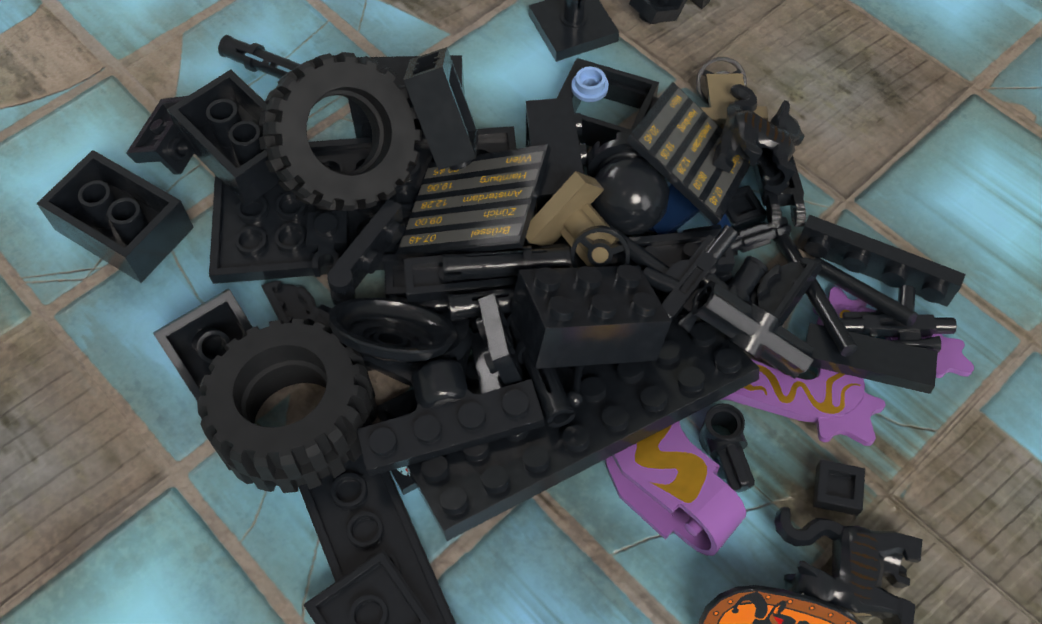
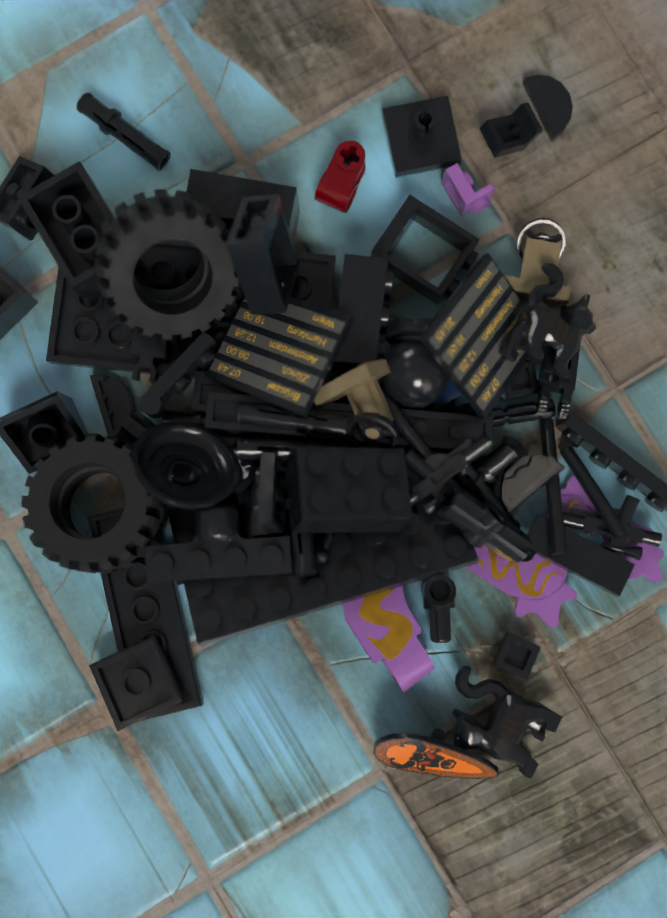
camera: 15 degrees right, 25 degrees up
(503, 62) = (340, 181): none -> dark red piece
(590, 84) = (412, 223): light blue plate -> none
(628, 55) = (461, 191): none -> medium lavender bracket

